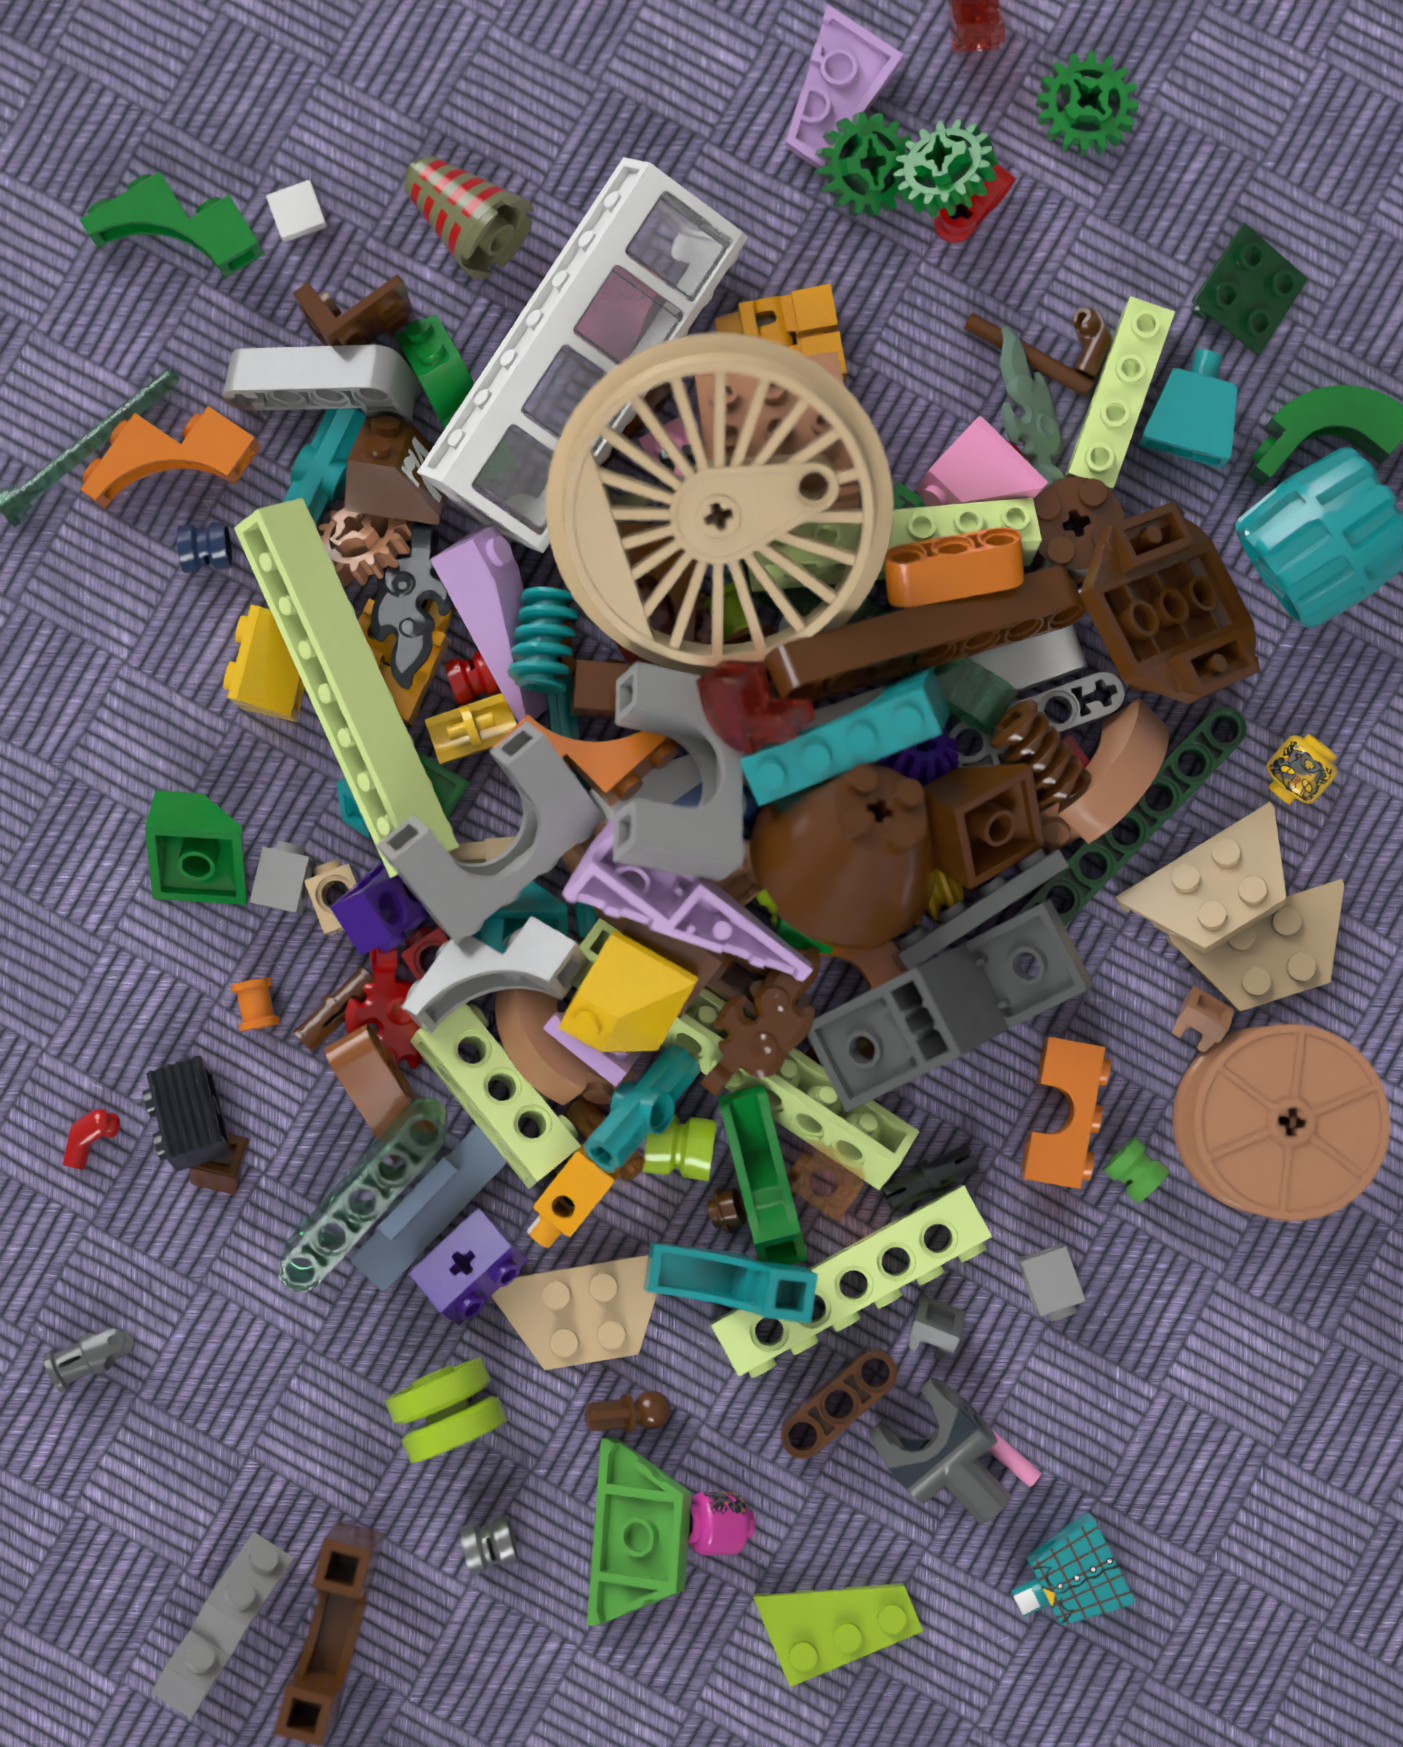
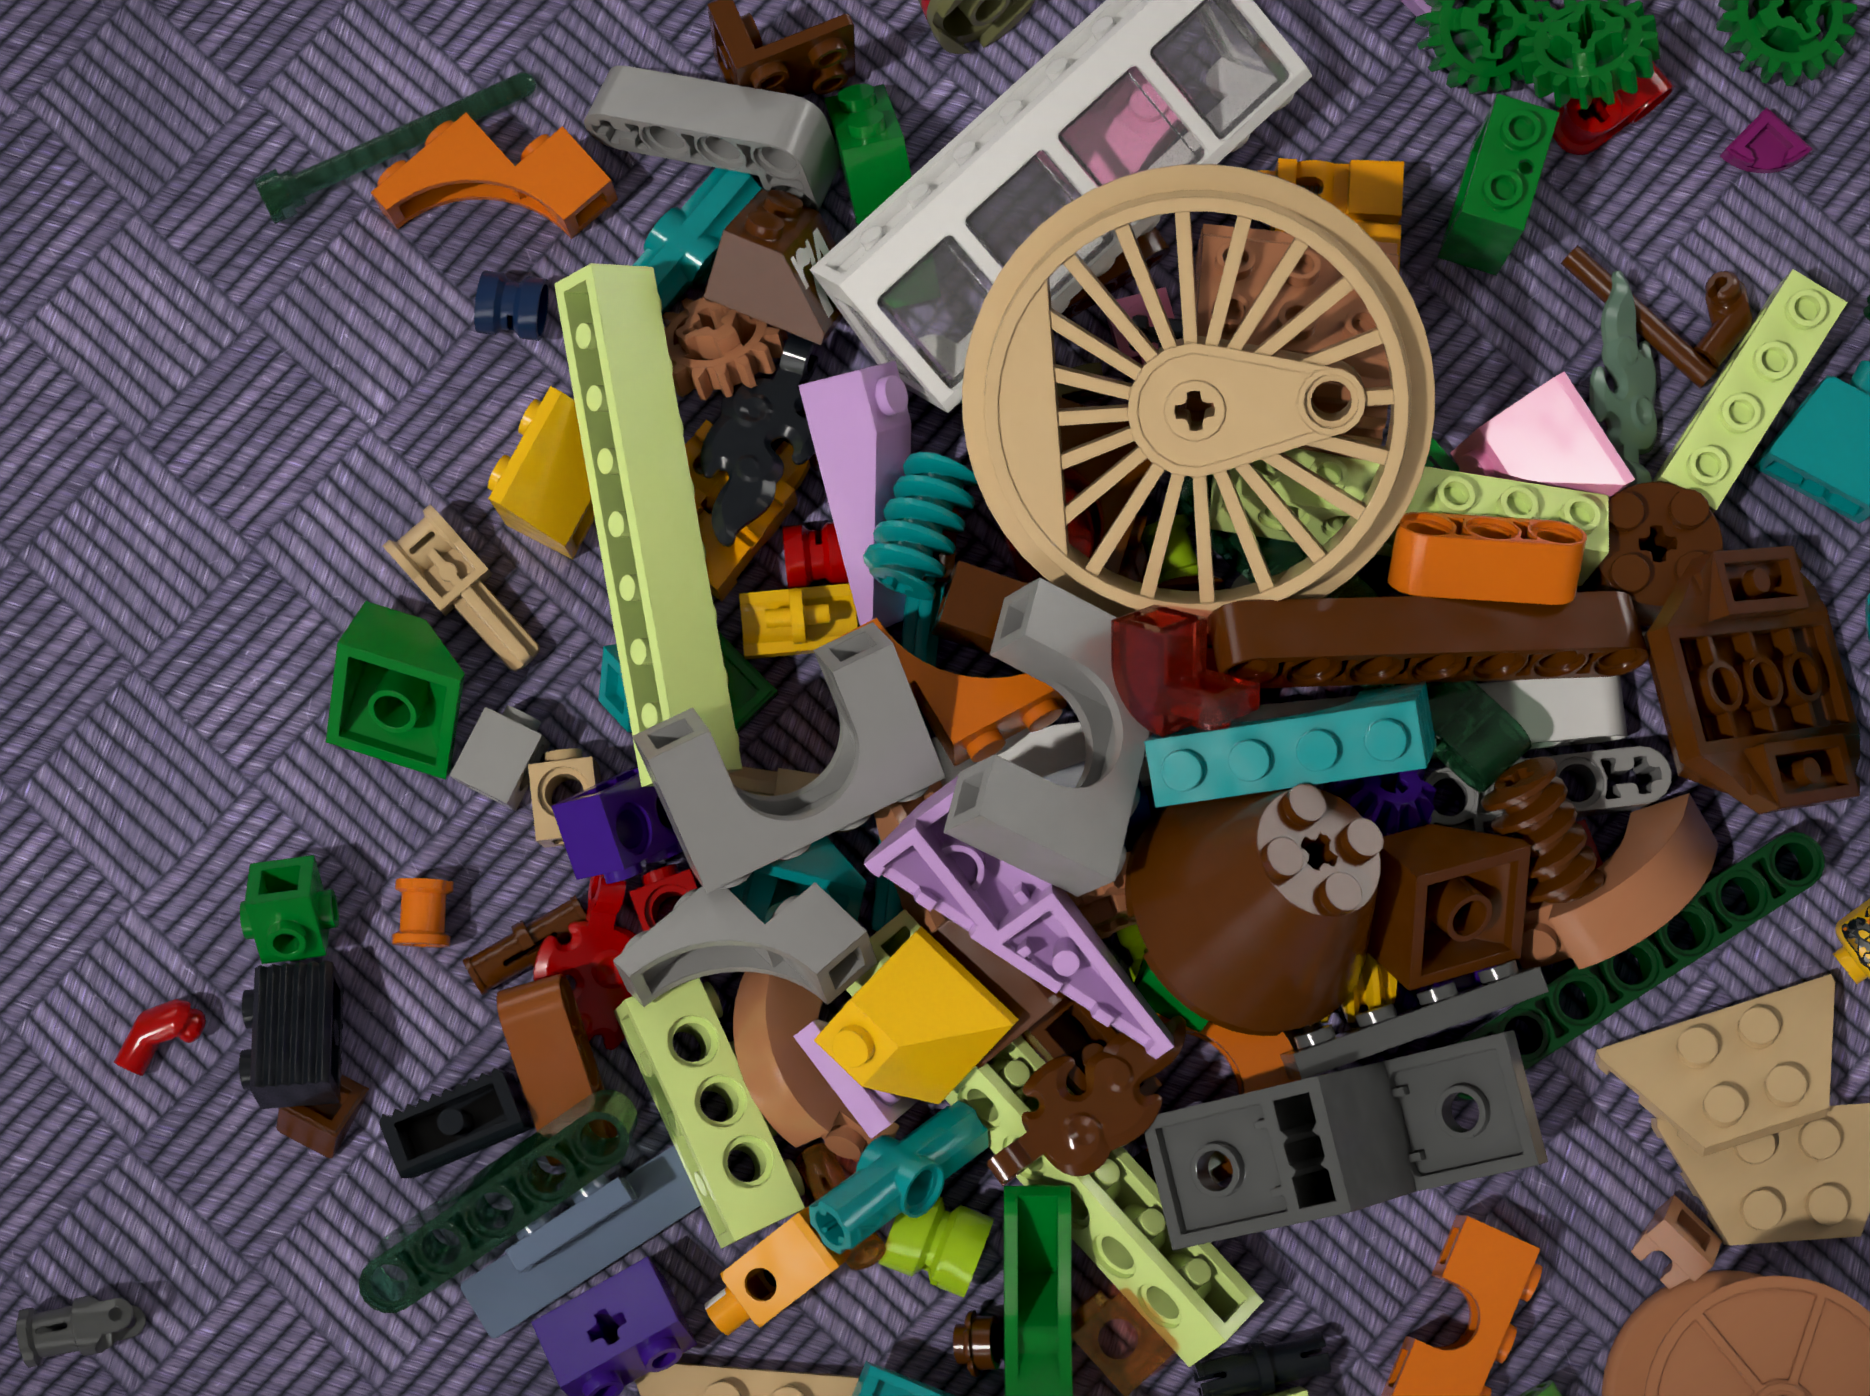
camera: 10 degrees right, 5 degrees down
(158, 1026) = (288, 910): none -> green brick
(215, 758) = (455, 579): none -> tan connector
(318, 1147) = (455, 1123): none -> black brick
(902, 285) = (1498, 184): none -> green window
(1093, 204) = (1766, 146): none -> magenta tile

